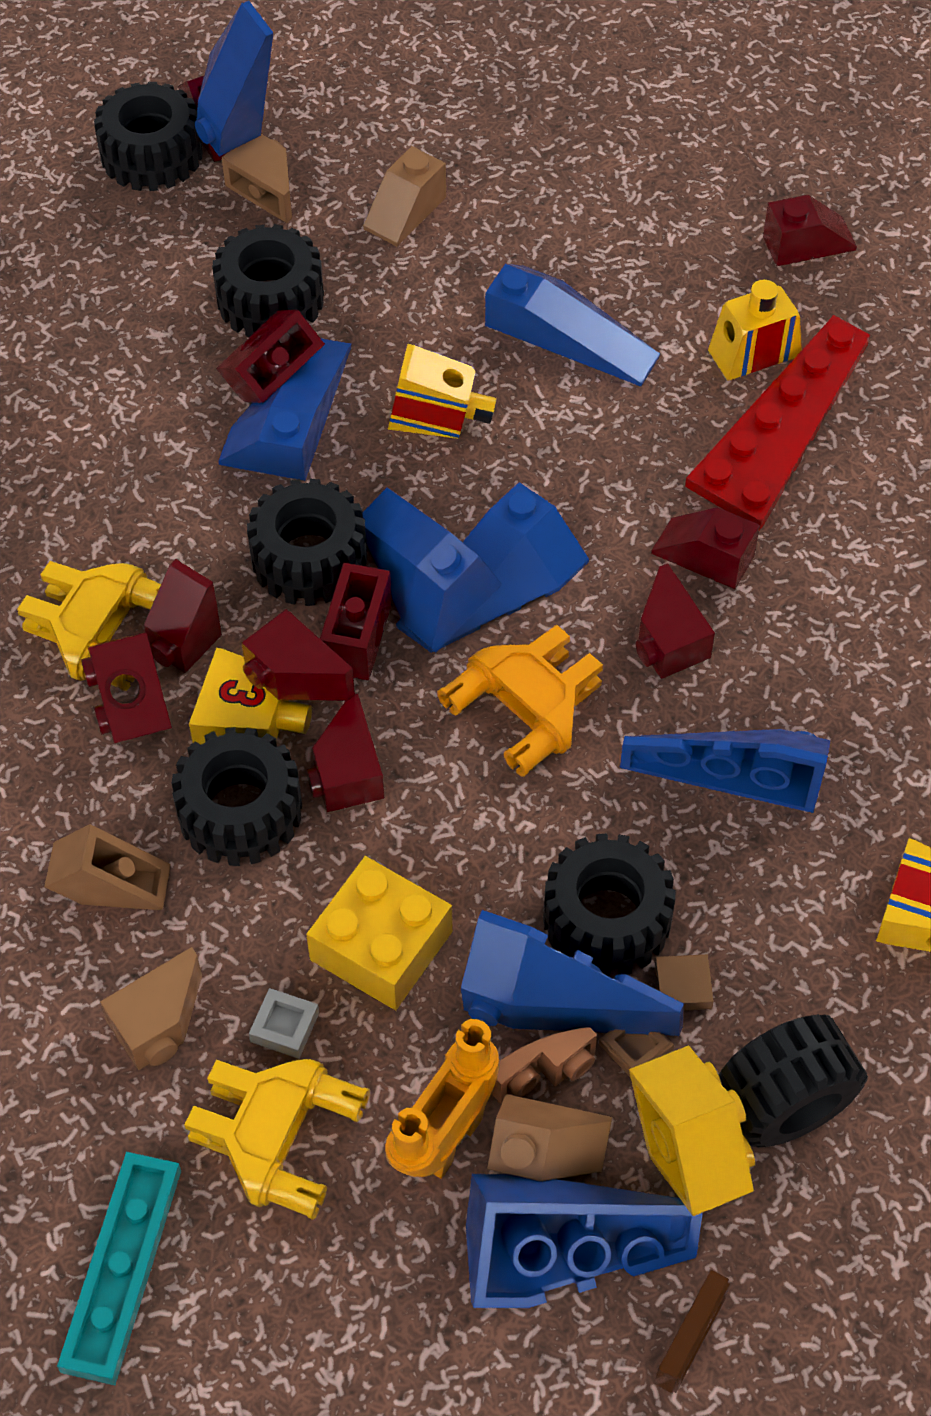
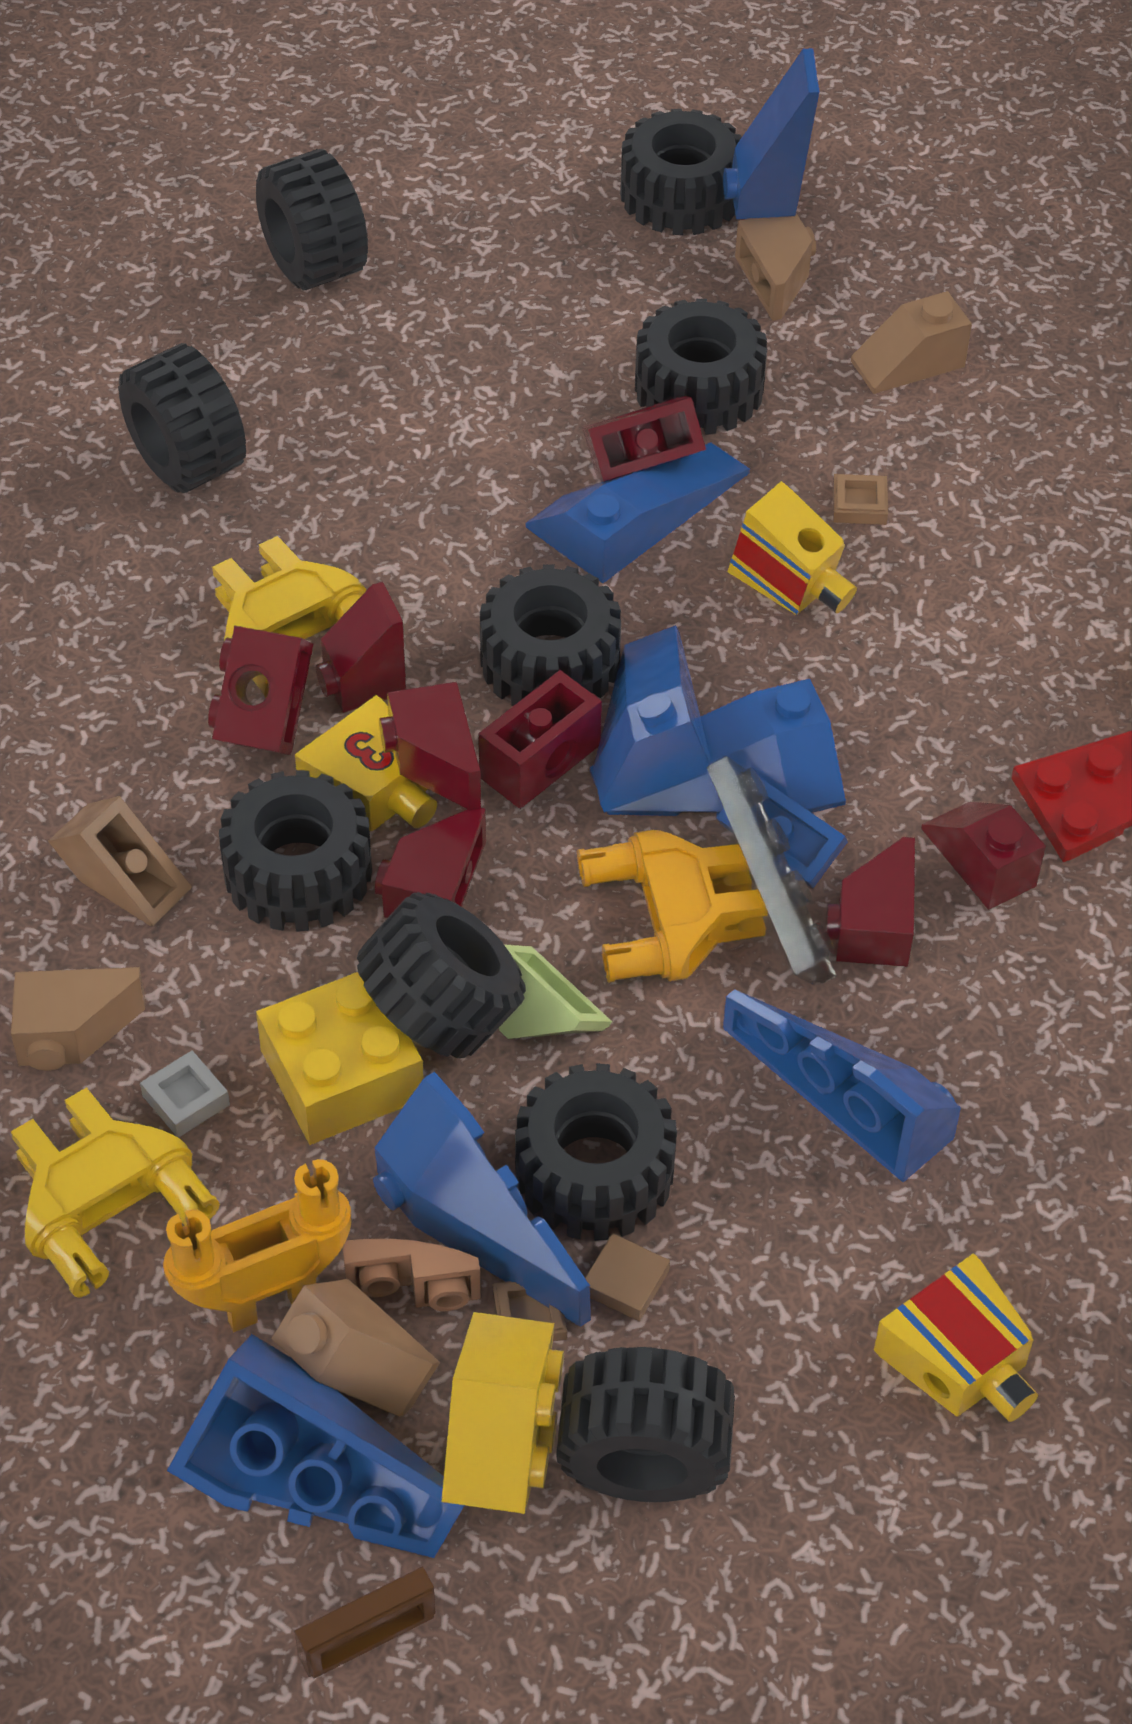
camera: 30 degrees right, 5 degrees down
(421, 835) = (440, 975): none -> black tyre
(444, 330) = (860, 499): none -> medium nougat tile
(484, 815) = (550, 1001): none -> yellowish green slope
(564, 322) = (997, 545): blue wedge -> none
(567, 602) = (811, 840): none -> blue plate
(573, 621) = (781, 889): none -> clear smoke plate

